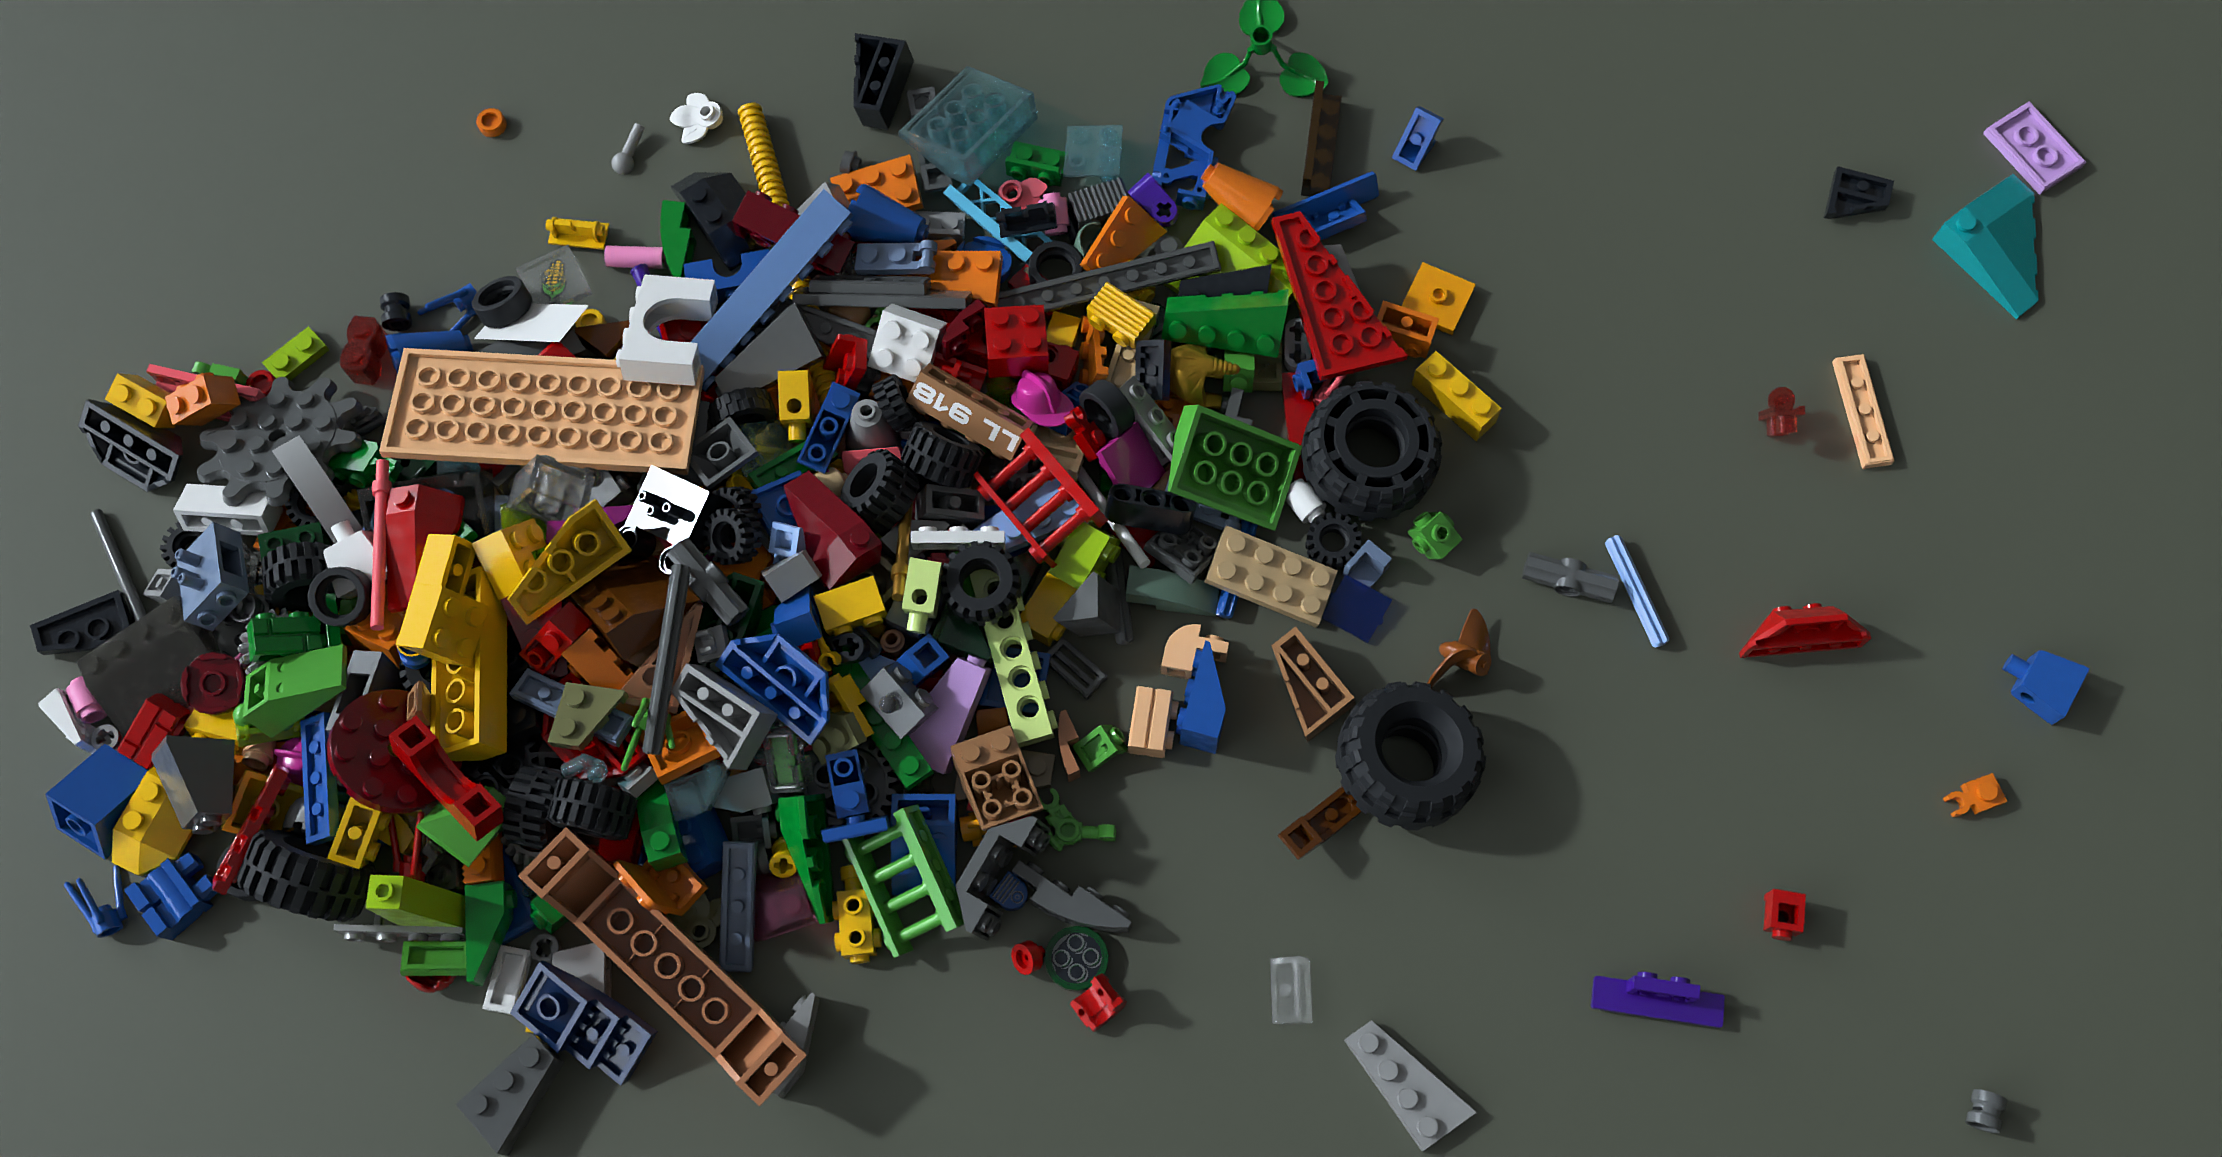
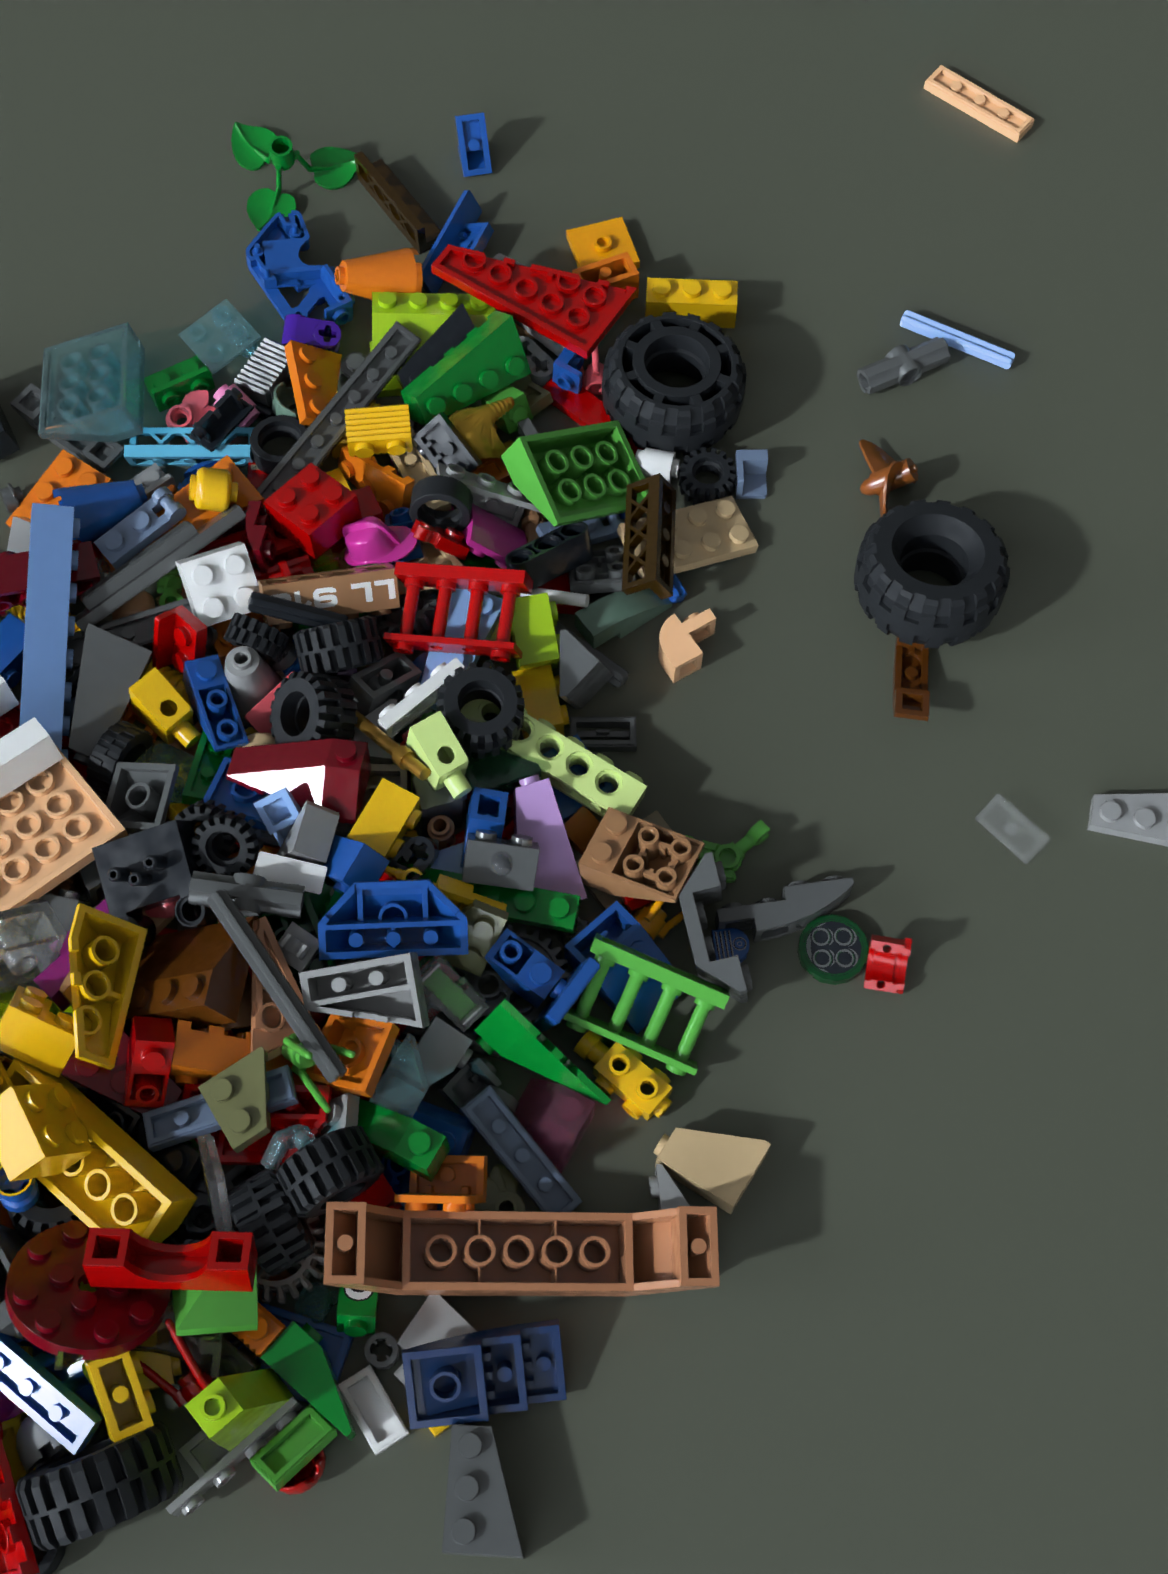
camera: 45 degrees left, 5 degrees down
(419, 703) = (70, 1227): medium nougat slope -> none
(519, 754) = (214, 1184): none -> clear tile
(751, 589) = (290, 871): none -> white sticker
(781, 862) = (520, 1081): yellow bush -> none
(850, 1026) = (712, 1163): none -> tan slope
(929, 407) = (292, 611): none -> black axle
(961, 270) = (212, 489): none -> yellow head
(1027, 957) = (796, 981): red tile -> none
(1067, 738) = (664, 800): nougat slope -> none
(1100, 746) = (686, 773): bright green bracket -> none
(1151, 722) = (708, 720): light nougat brick -> none
(1204, 717) = (738, 667): blue slope -> none
(1238, 556) = (656, 531): none -> dark brown fence
(1311, 683) = (799, 589): medium nougat wedge -> none
(1356, 608) = (773, 512): clear blue piece -> none
(1434, 534) = (779, 410): bright green brick -> none
(1781, 415) = (934, 140): clear red hips -> none
(1805, 631) = (1098, 273): red wedge -> none

